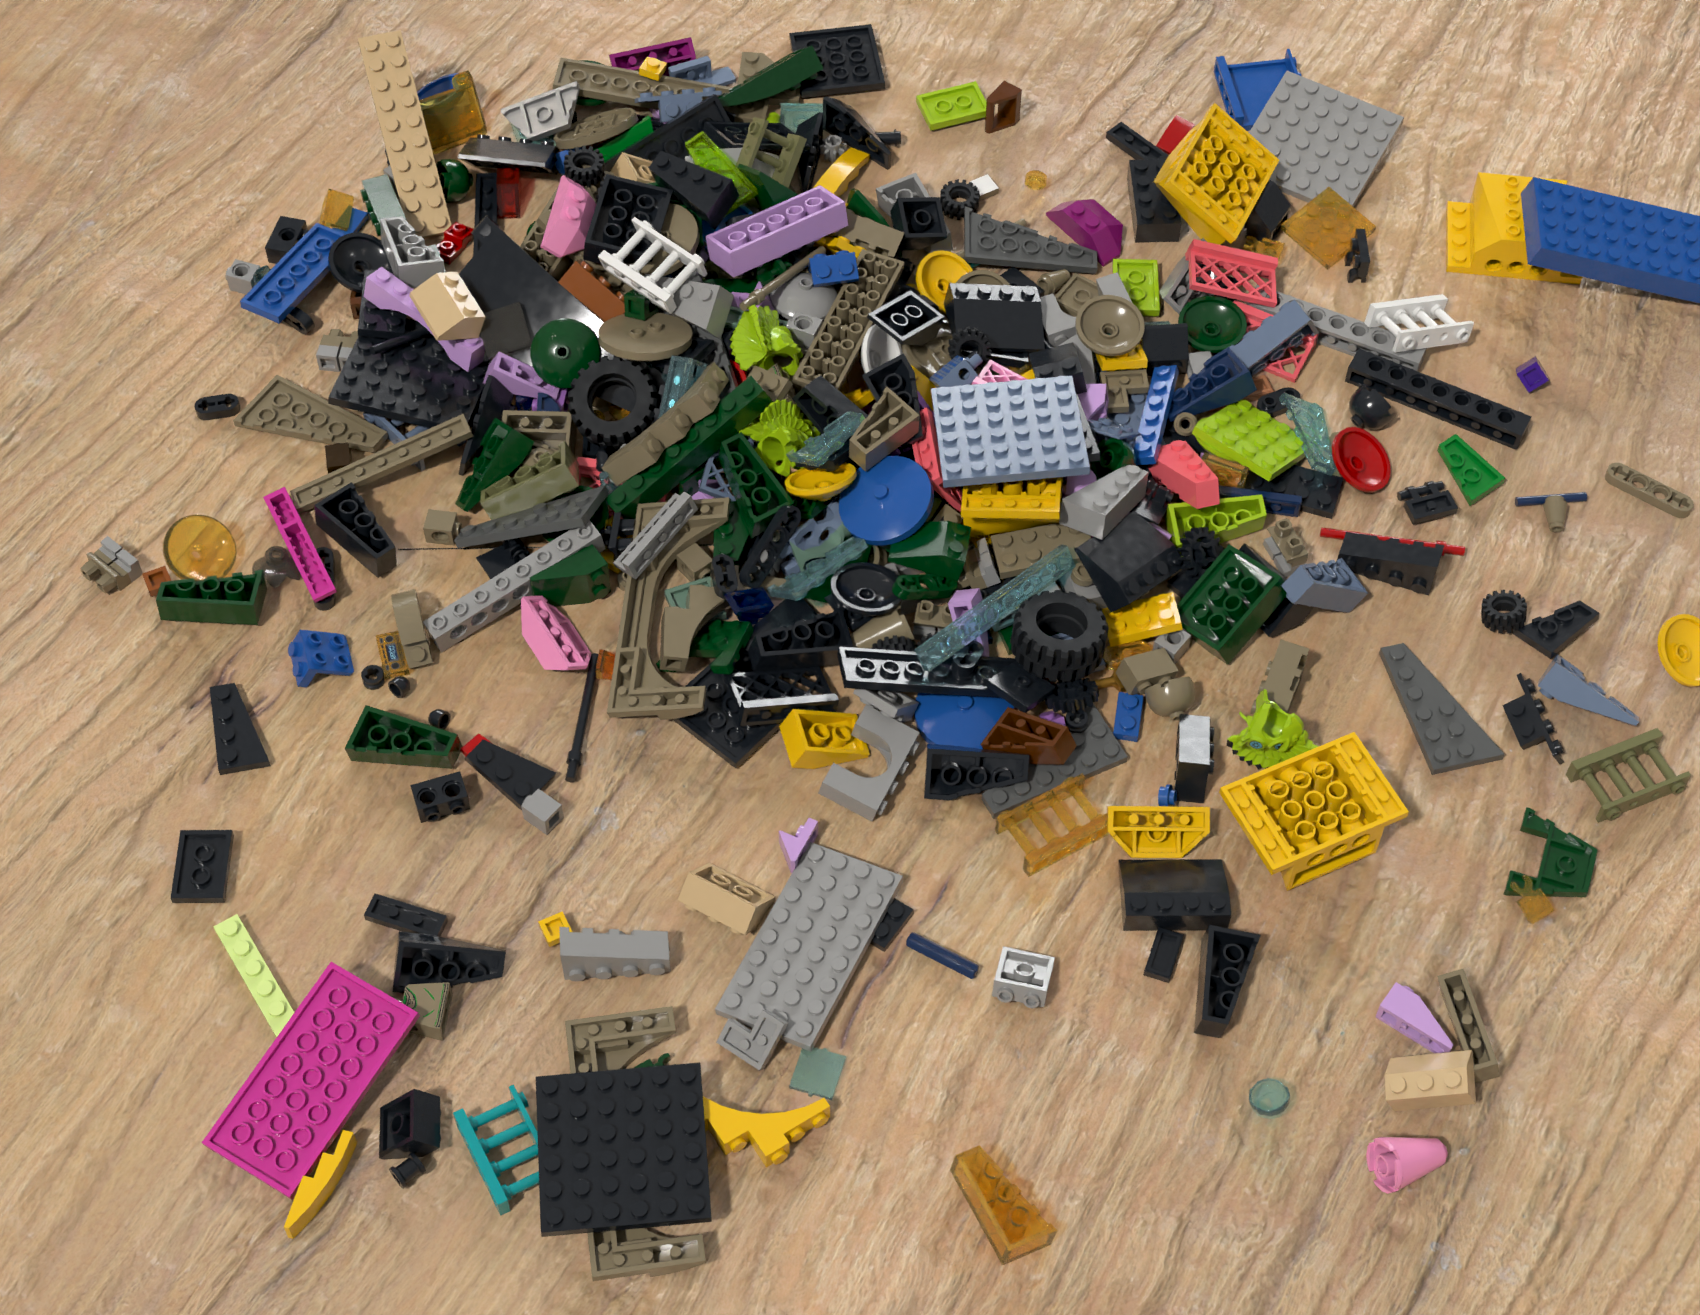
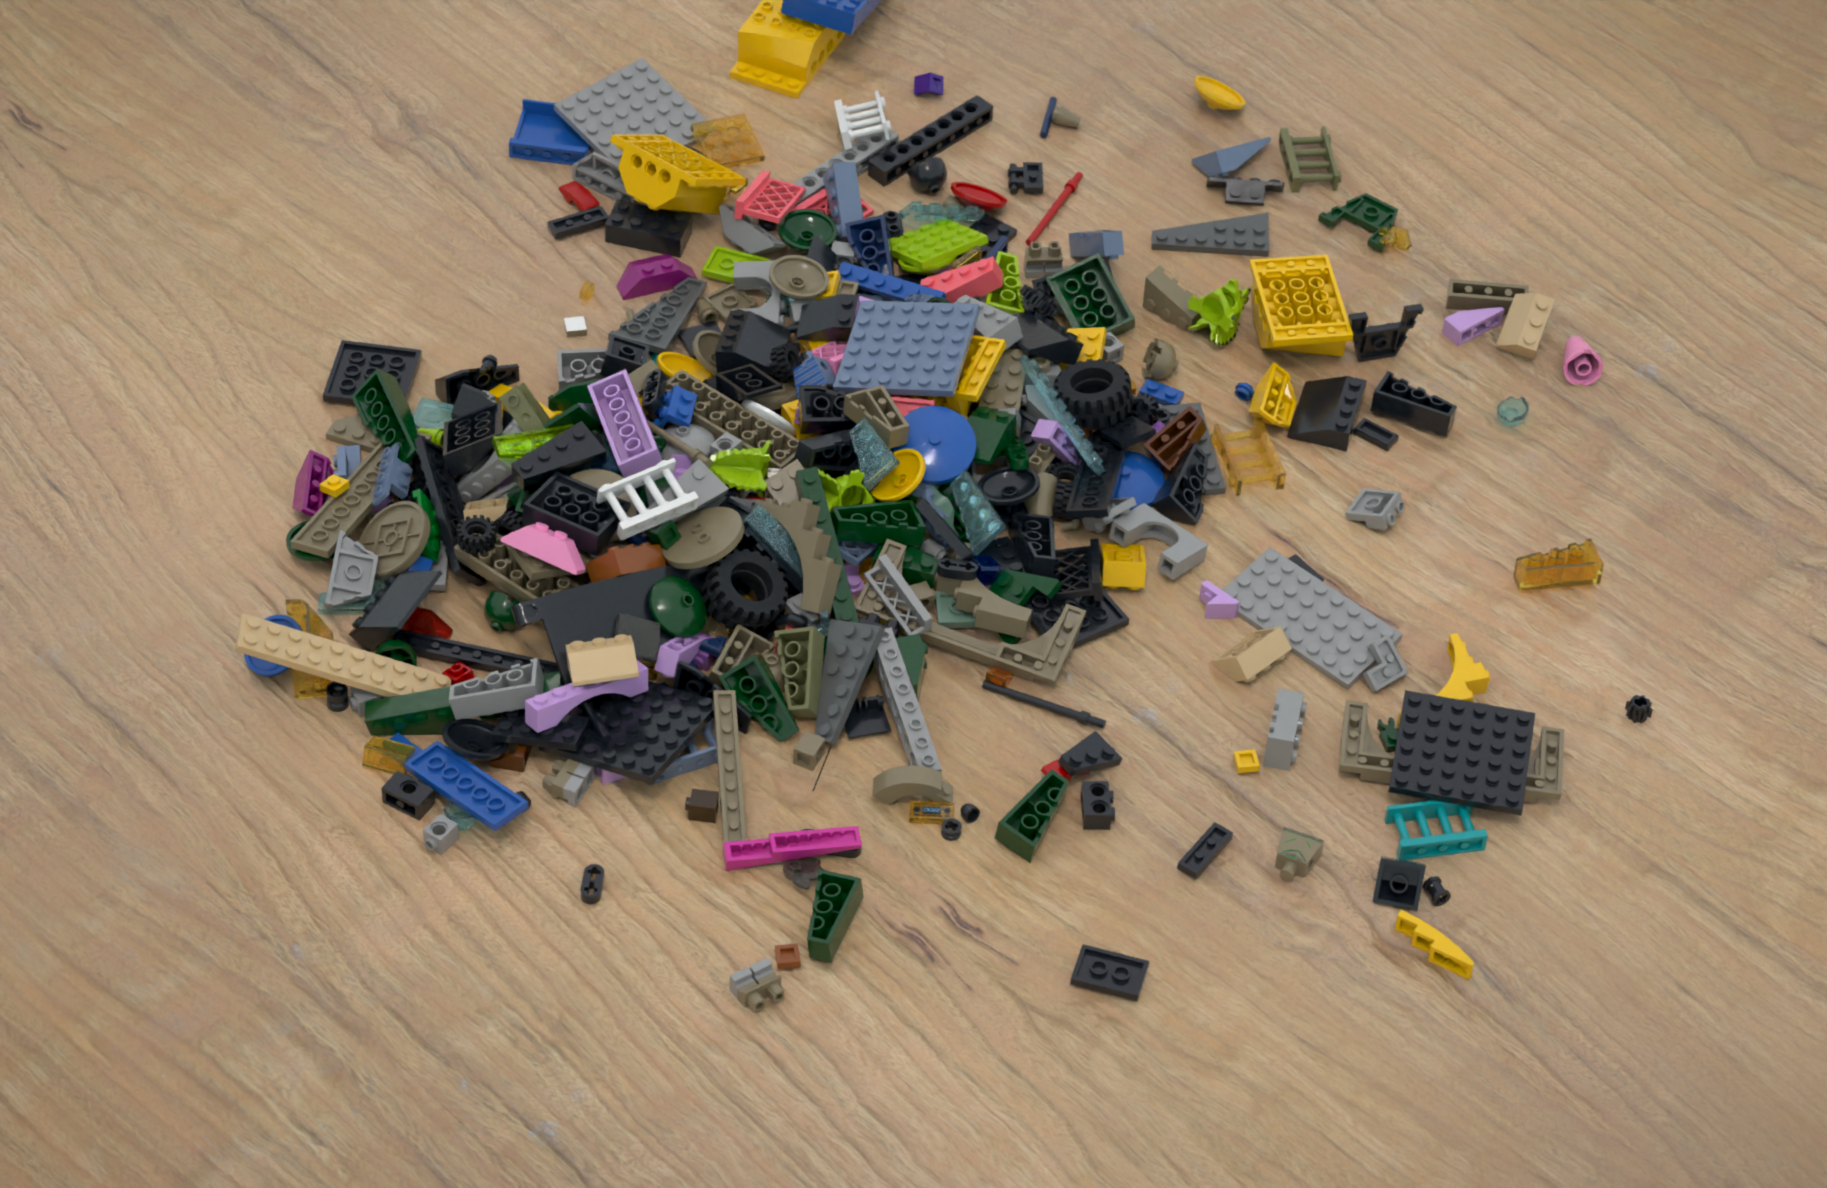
camera: 75 degrees left, 10 degrees down
(203, 536) = (772, 914): clear yellow dish -> none
(235, 736) = (979, 932): black wing -> none
(255, 973) = (1255, 951): yellowish green plate -> none
(300, 414) = (631, 826): dark tan wing -> none
(311, 1080) = (1345, 928): dark pink plate -> none
(319, 653) = (918, 860): blue bracket -> none
(356, 529) = (794, 803): black wedge -> none
(439, 718) = (1013, 793): black hinge -> none
(442, 960) = (1253, 837): black wedge -> none
(542, 811) = (1133, 745): light grey brick -> none
(552, 636) = (968, 701): bright pink wedge -> none
(817, 1073) = (1417, 644): clear light blue piece -> none
(853, 244) = (654, 390): none -> black beam
(942, 955) = (1339, 549): dark blue axle -> none
(952, 105) = (470, 317): lime plate -> none
(959, 190) = (584, 334): black tyre -> none
(1009, 104) = (497, 282): reddish brown tile -> none
(1146, 670) = (1134, 363): dark tan brick -> none
(1177, 423) = (903, 273): dark tan plate -> none
(1193, 757) = (1215, 363): wedge -> none
(1311, 913) = (1384, 339): none -> black wing
(1358, 256) = (775, 128): black plate -> none
(1392, 561) = (1080, 209): black wedge -> none
(1470, 471) = (1005, 146): green wing -> none
(1503, 602) = (1146, 178): black tyre -> none
(1556, 631) = (1169, 151): black wing -> none
(1650, 487) = (1044, 75): dark tan beam -> none

